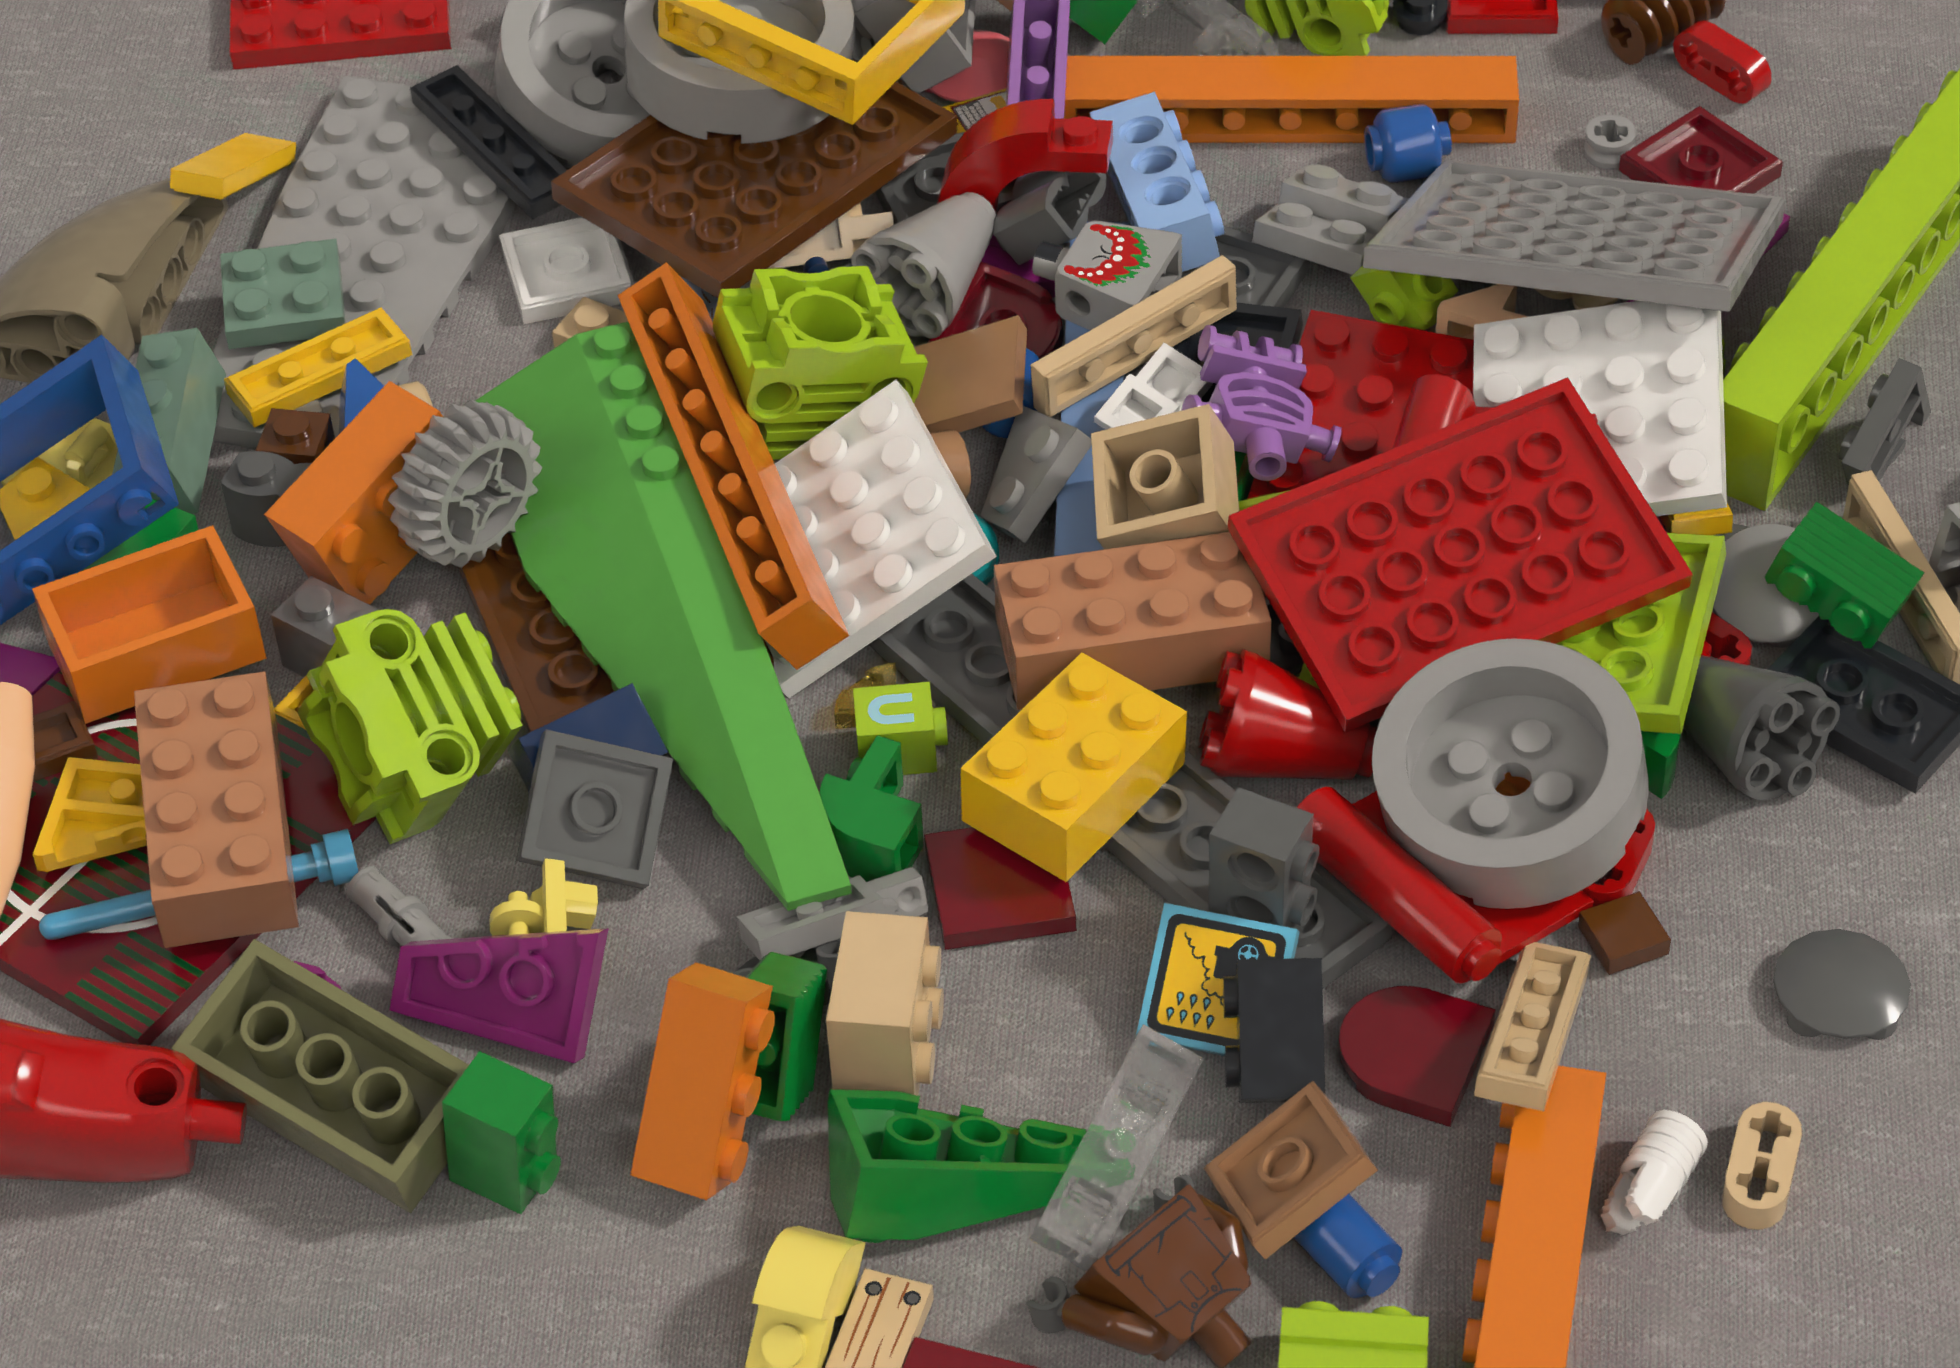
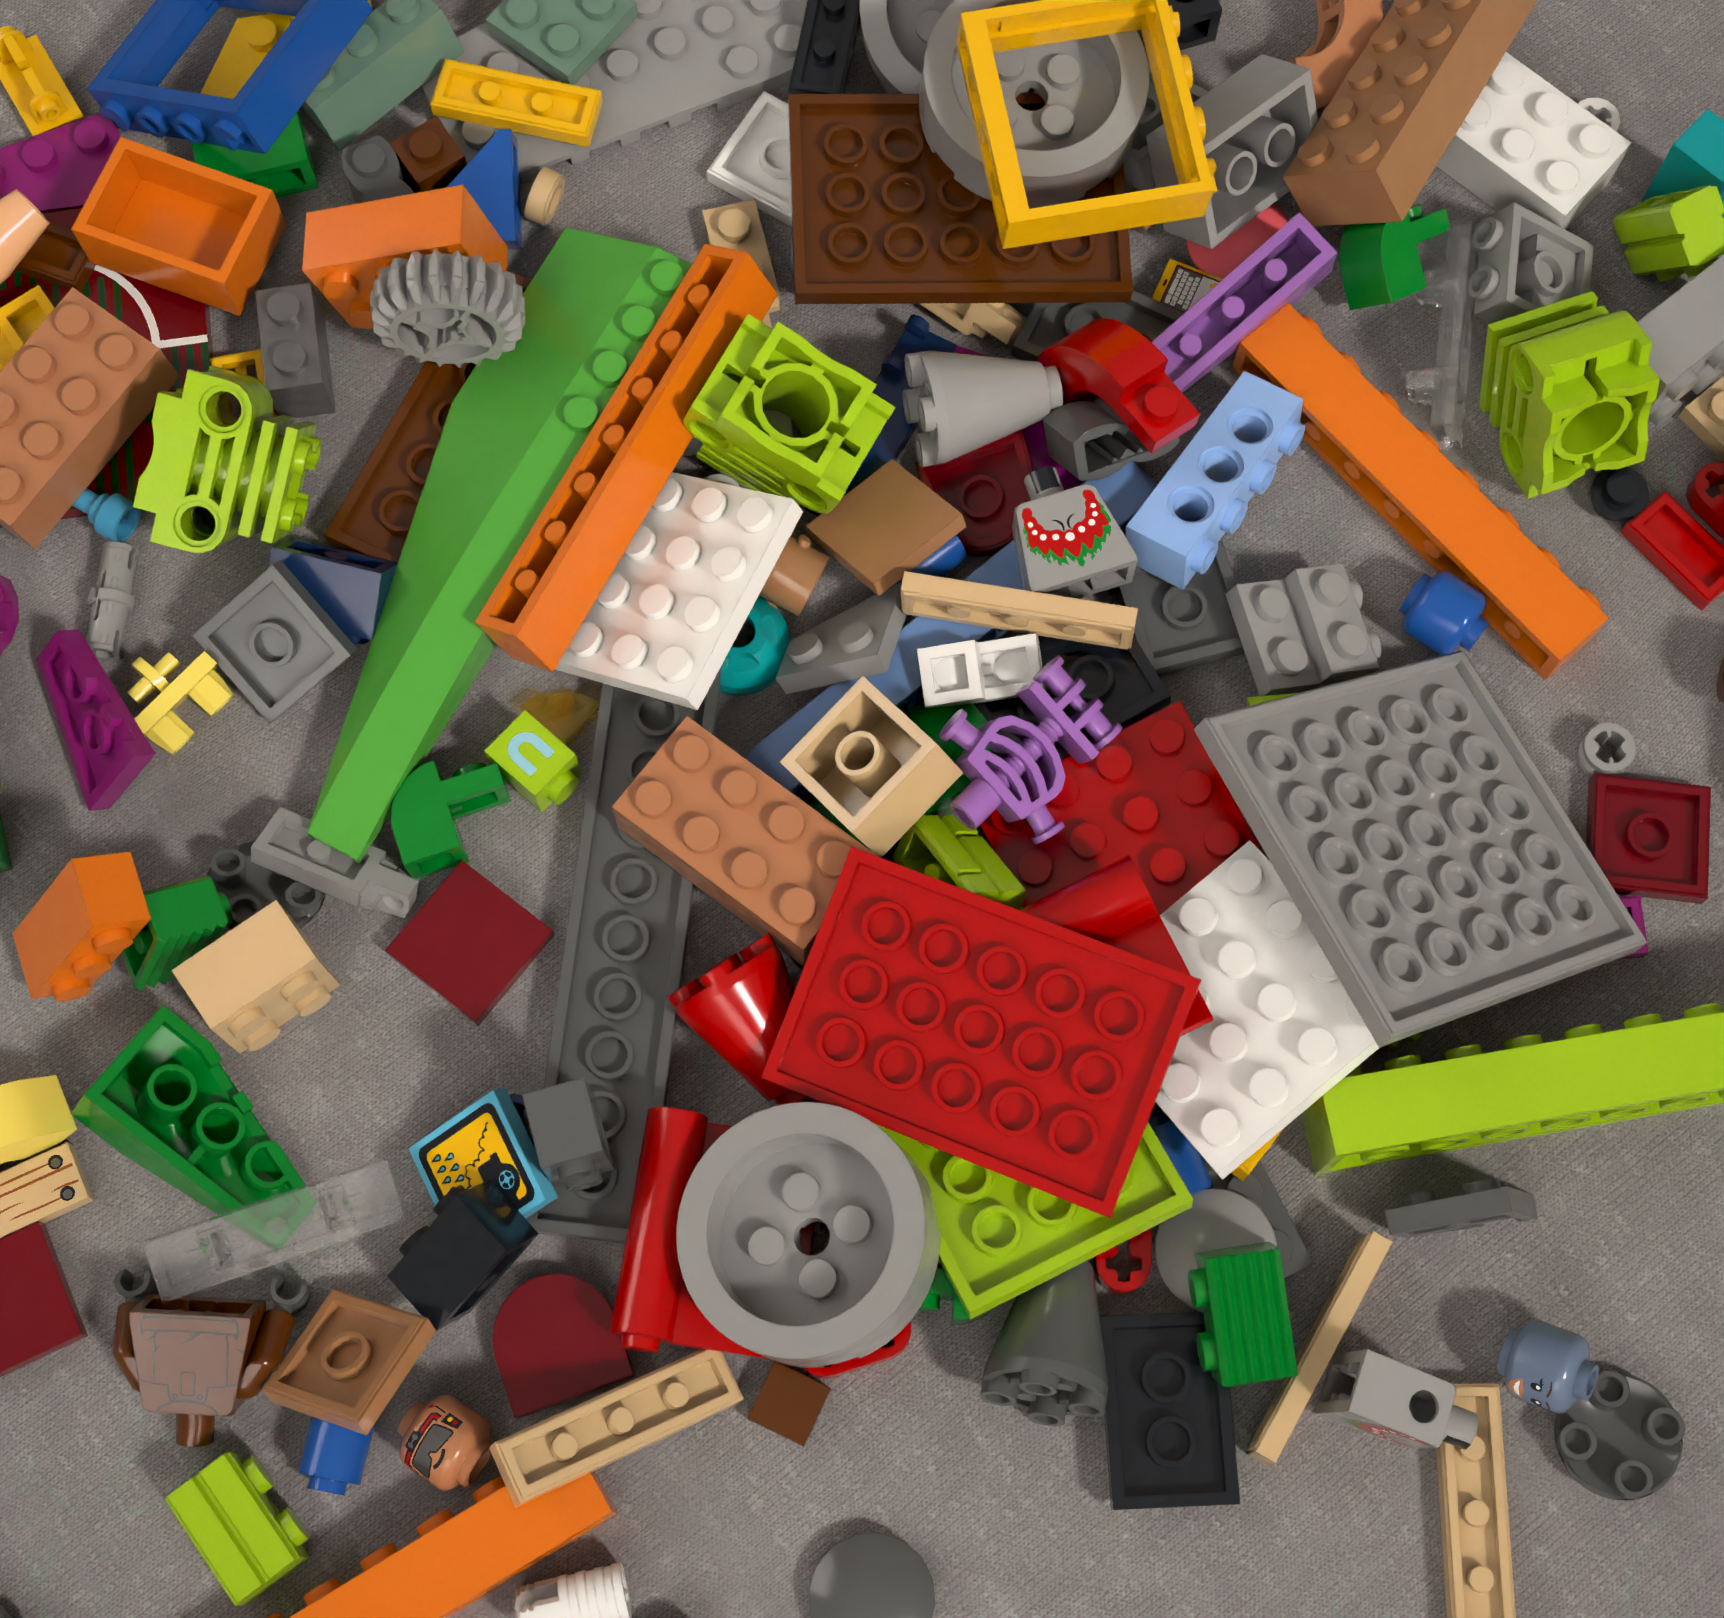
camera: 45 degrees right, 25 degrees up
(1073, 766) = (571, 919): yellow brick -> none
(1427, 1163) = (445, 1442): none -> nougat head

